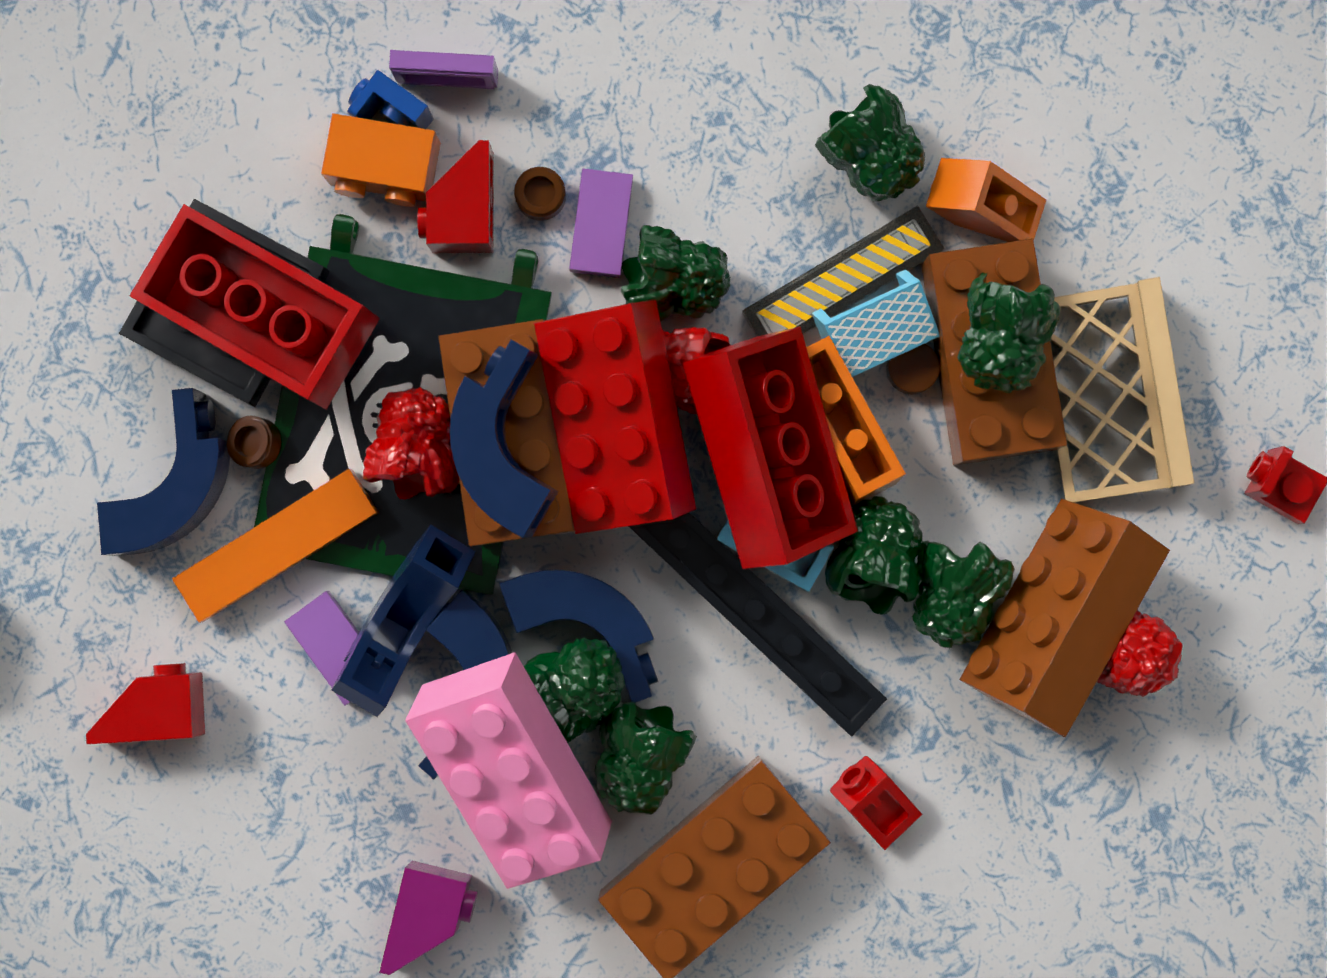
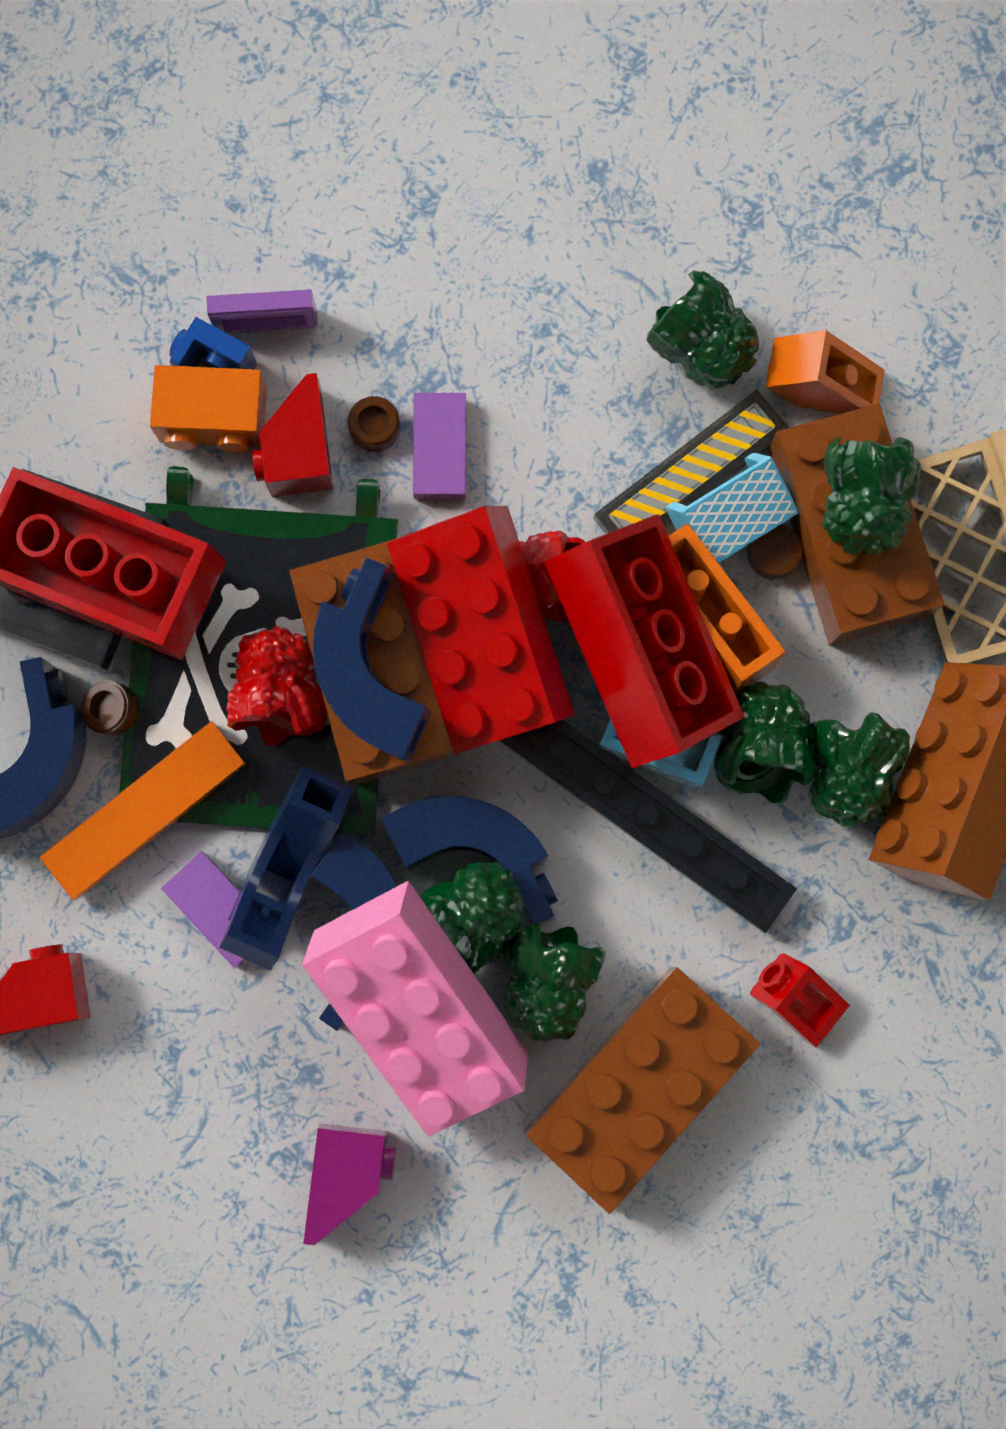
camera: 10 degrees left, 5 degrees down
(676, 273) = (529, 481): dark green hair -> none

